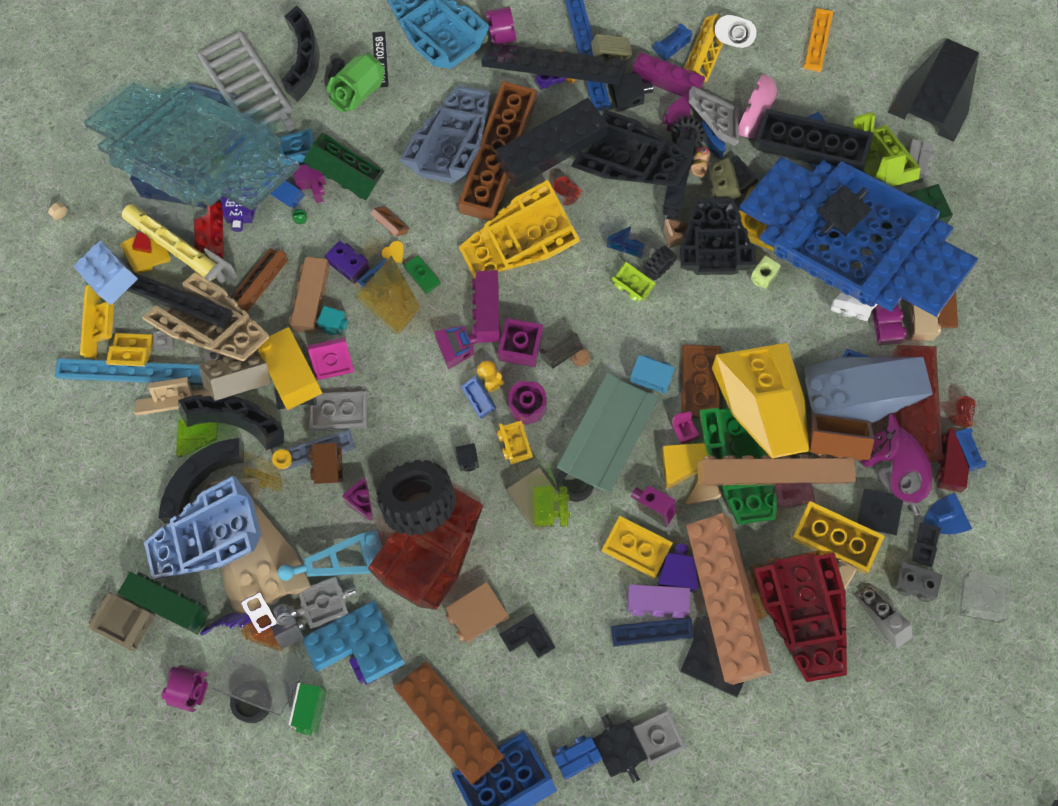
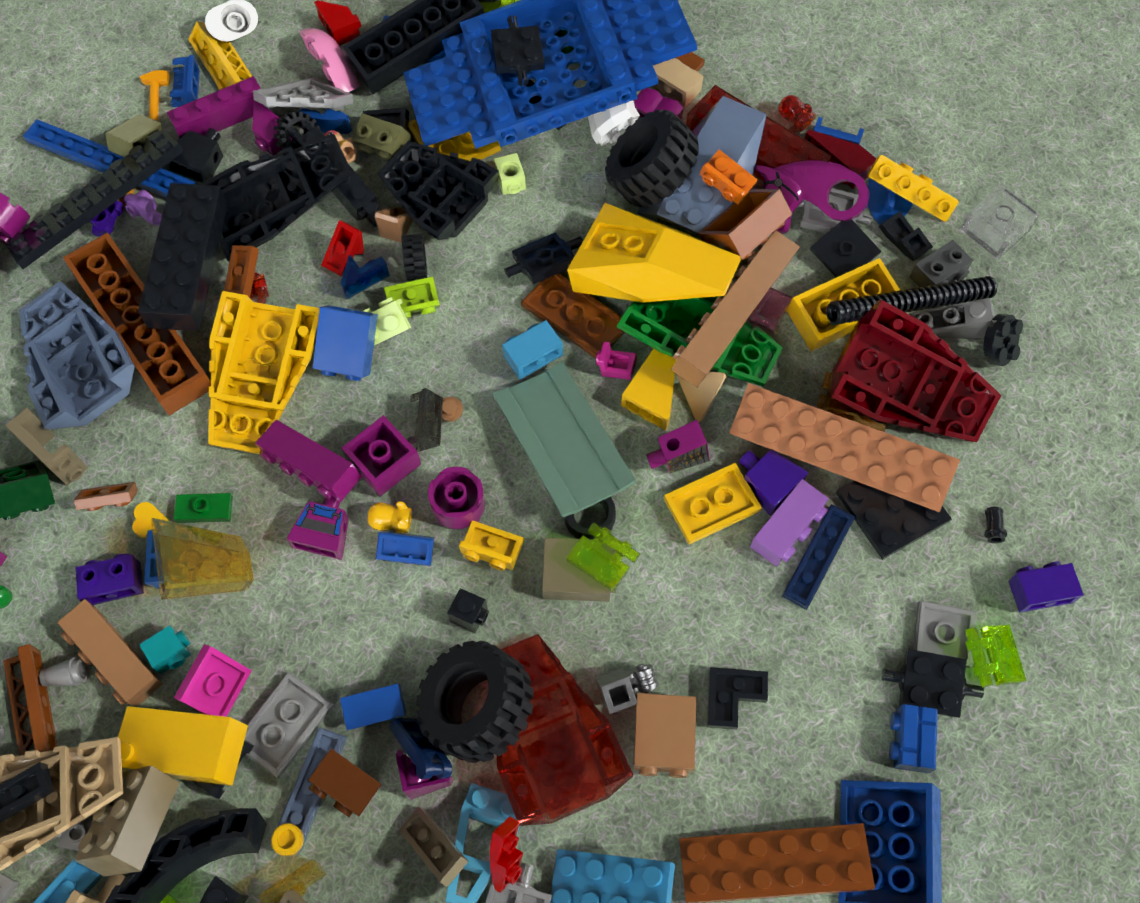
camera: 55 degrees left, 5 degrees down
(284, 282) = (66, 673): none -> light grey cone
(328, 533) = (433, 846): none -> dark tan plate
(347, 572) = (504, 856): none -> red slope
(370, 489) = (426, 757): none -> dark blue plate
(379, 448) = (373, 706): none -> blue hinge
(389, 158) = (34, 436): none -> dark tan panel
(483, 569) = (619, 686): none -> flat silver brick
(568, 179) = (241, 269): none -> dark orange plate
(573, 90) = (144, 206): none -> medium lavender plate
(573, 268) = (344, 342): none -> blue brick
(602, 278) = (390, 320): none -> yellowish green bracket
(635, 218) = (344, 242): none -> red slope
(661, 24) = (155, 79): none -> light orange piece
(669, 779) = (1002, 655): none -> clear neon green plate
(721, 335) = (543, 257): none -> black plate
(733, 780) = (1045, 586): none -> dark purple brick
(754, 726) = (995, 525): none -> black pin
(790, 90) = (338, 21): none -> red slope
(838, 347) = (652, 158): none -> black tyre
(861, 402) = (727, 177): none -> orange bracket
(870, 577) = (914, 299): none -> black piece
(899, 655) = (1003, 340): none -> black plate
(963, 523) = (913, 187): none -> yellow bracket

